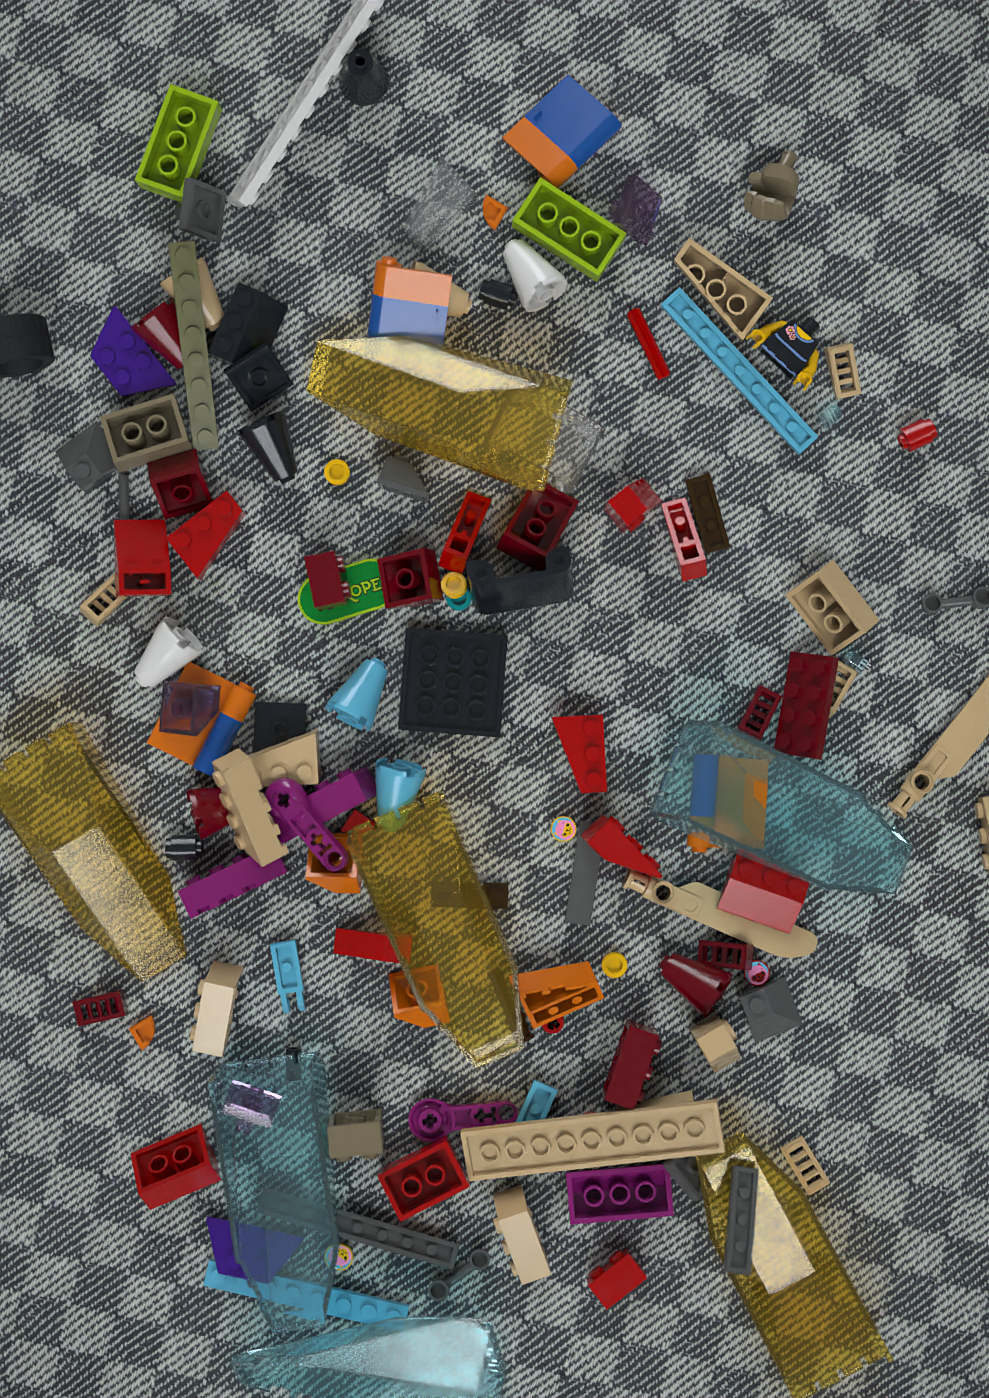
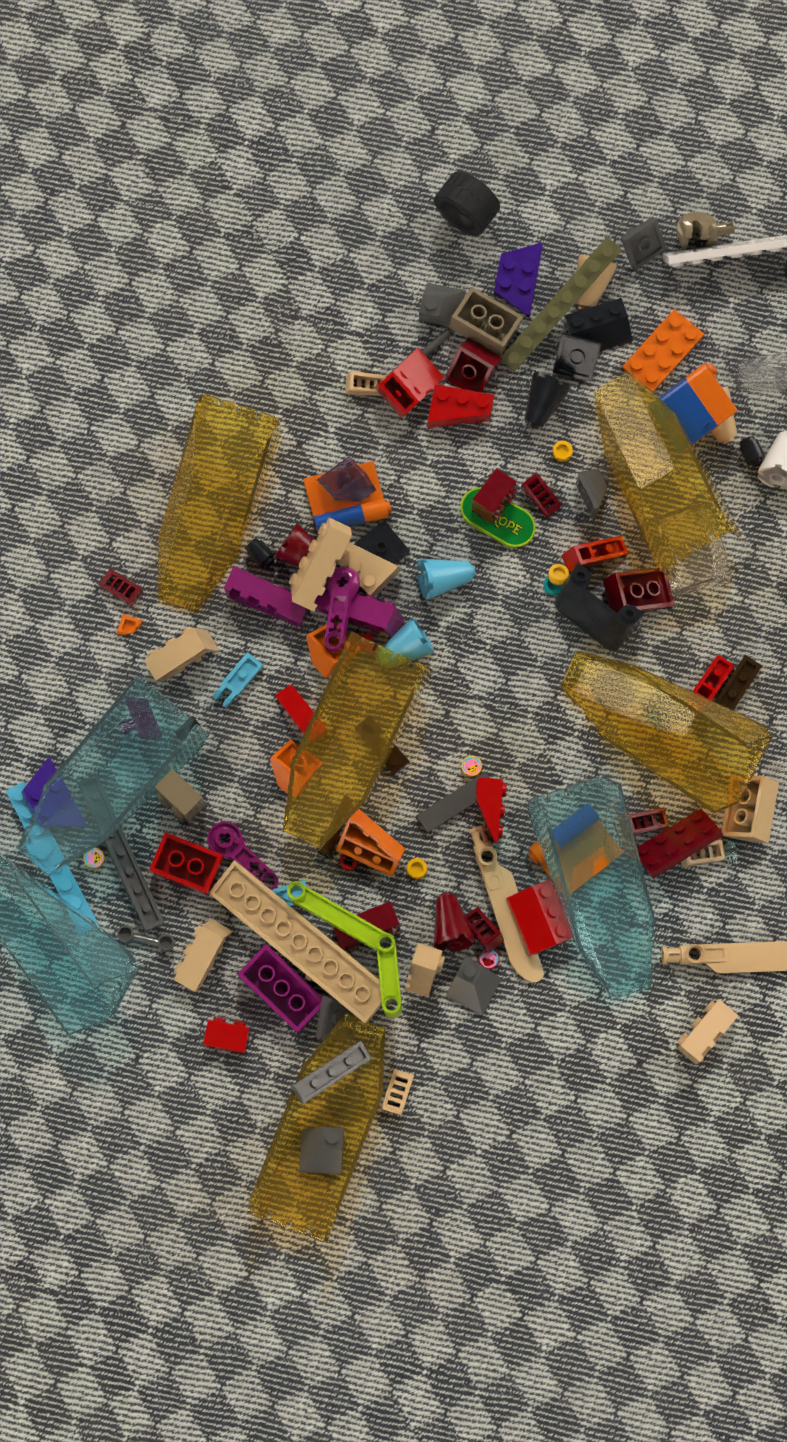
camera: 45 degrees right, 10 degrees down
(161, 332) = (551, 279): dark red cone -> none
(166, 653) = (367, 443): white cone -> none
(175, 1167) = (63, 712): red slope -> none
(178, 142) = (670, 196): lime brick -> none
(240, 134) = (705, 225): none -> dark tan piece
(324, 287) = (663, 350): none -> orange plate
(341, 521) = (546, 491): none -> dark red slope
(410, 579) = (539, 545): dark red slope -> none
(452, 682) = (500, 624): black plate -> none
(585, 750) = (531, 735): red wedge -> none
(631, 505) = (701, 634): red wedge -> none
(639, 1079) = (361, 931): none -> lime piece
(706, 619) = (669, 729): none -> clear yellow windscreen
(799, 1283) = (322, 1150): none -> dark grey slope

